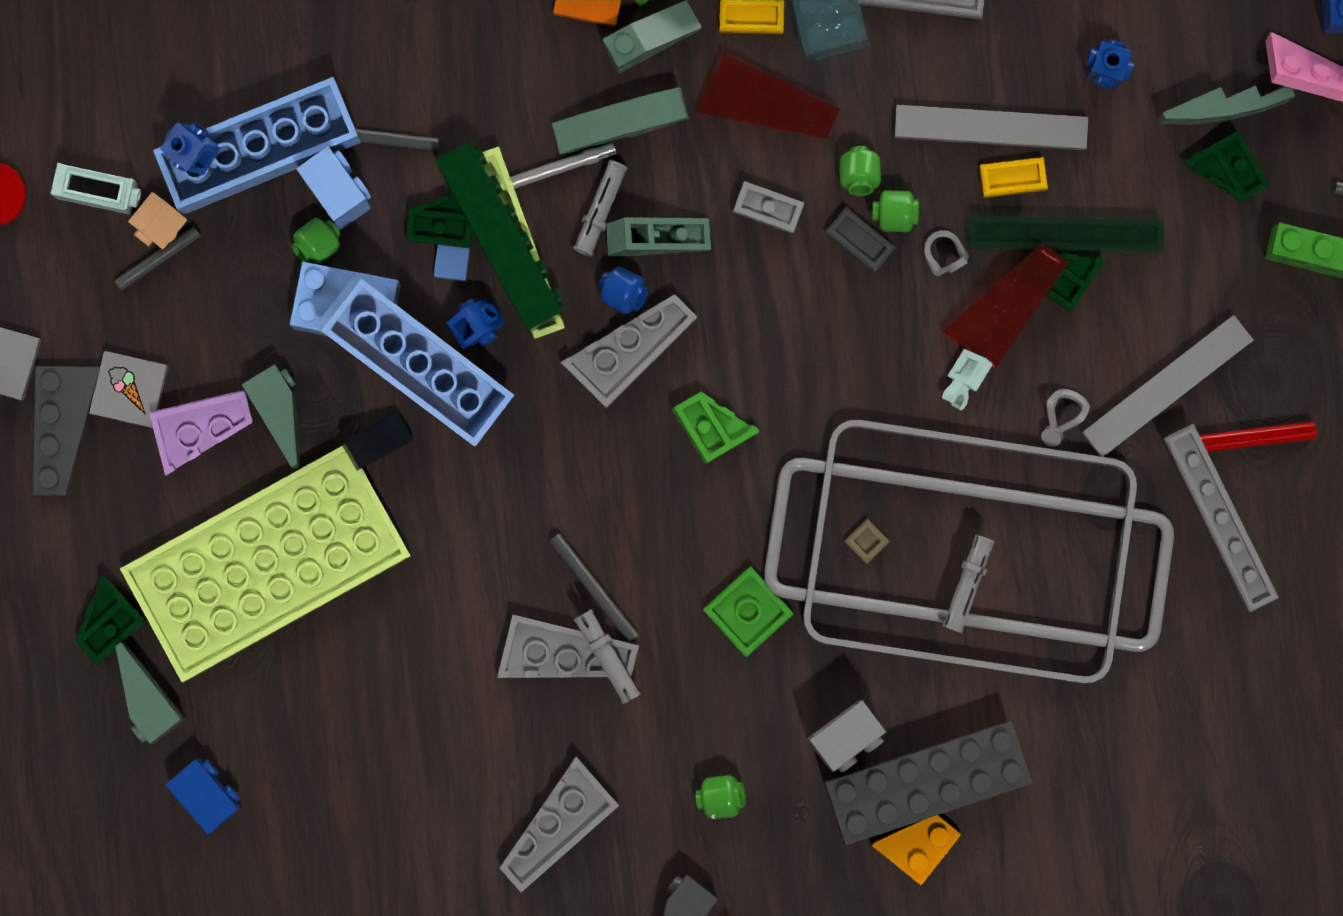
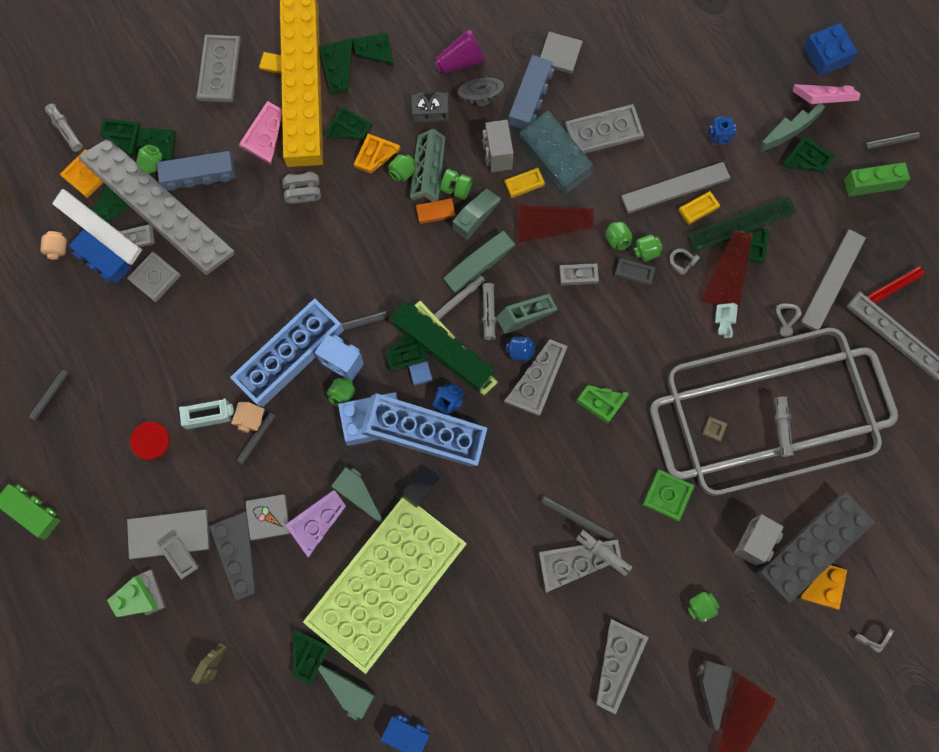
camera: 15 degrees left, 10 degrees down
(189, 148) = (250, 365): blue brick -> none

